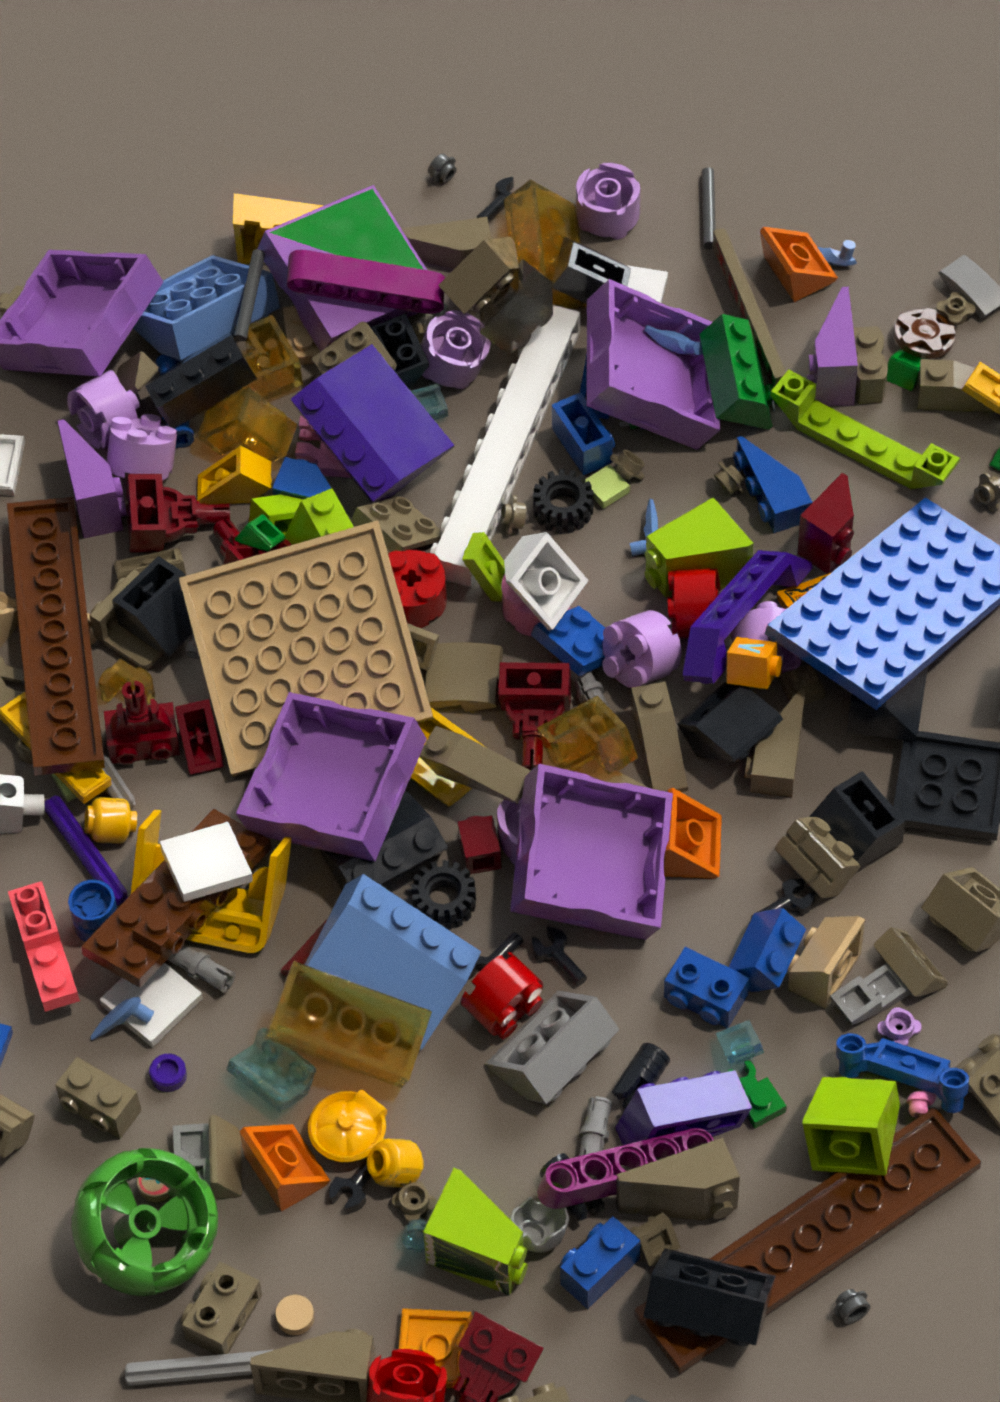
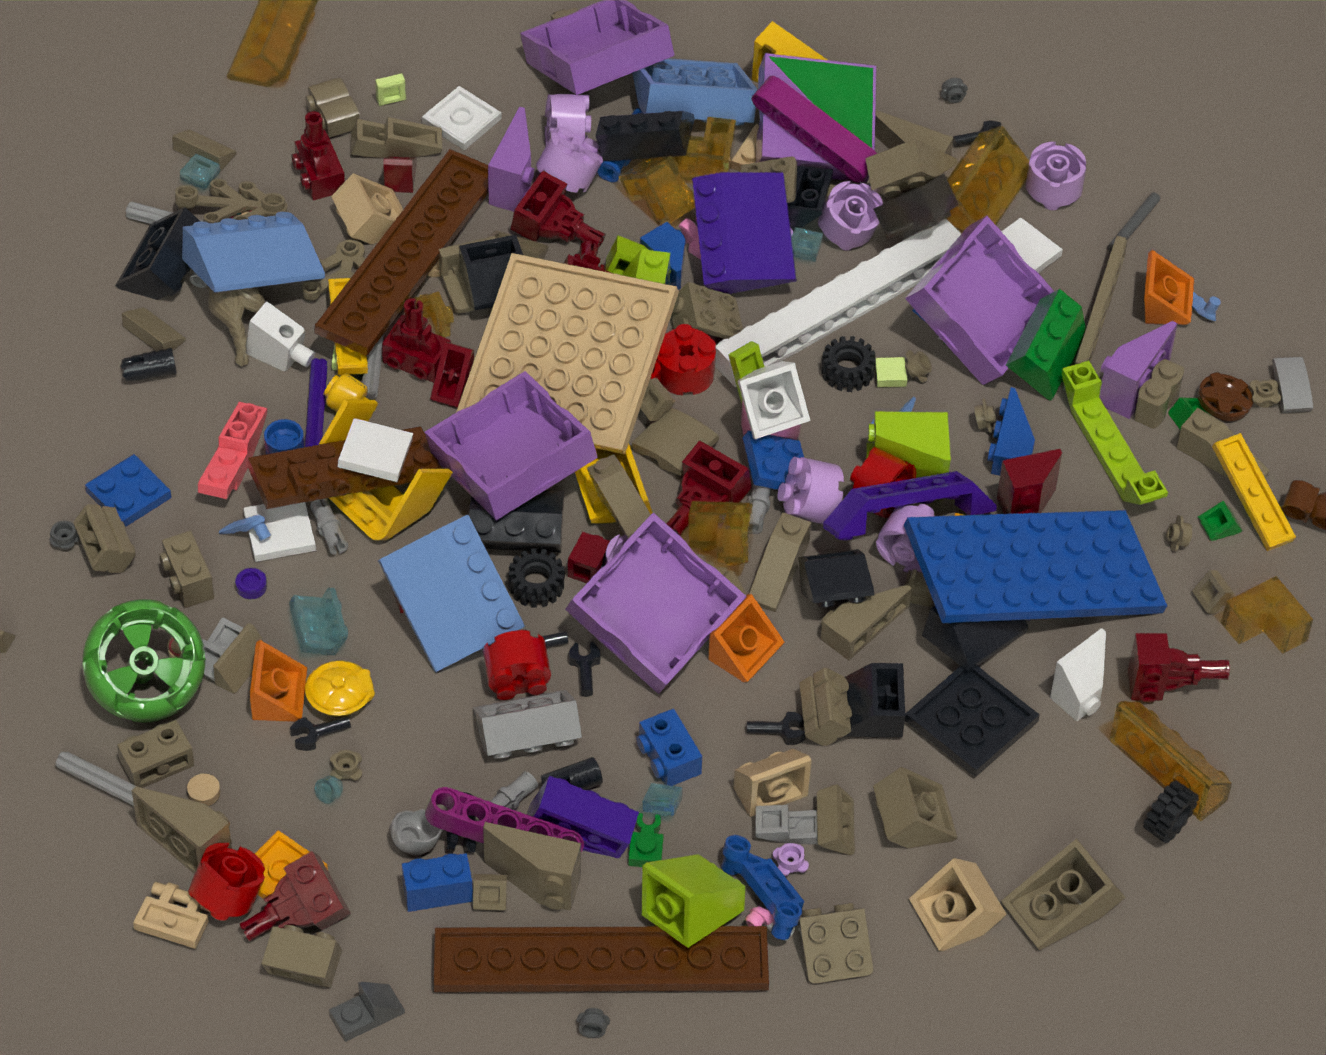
camera: 30 degrees right, 5 degrees down
(136, 372) = (610, 107): dark tan slope -> none
(235, 478) = (624, 217): yellow slope -> none
(249, 295) = (727, 96): dark grey bar -> none
(261, 534) = (600, 259): green slope -> none
(348, 1024) = (388, 617): clear yellow slope -> none
(395, 1162) = (350, 730): yellow head -> none
(474, 1237) = (357, 808): lime slope -> none
(513, 514) = (803, 352): dark tan plate -> none
(582, 433) = (898, 323): blue brick -> none
(583, 270) = (995, 203): black slope -> none
(675, 341) = (1018, 294): medium blue bar -> none
(708, 1297) = (489, 947): black slope -> none
(752, 663) = (879, 541): light orange brick -> none
(768, 948) = (734, 746): blue brick -> none

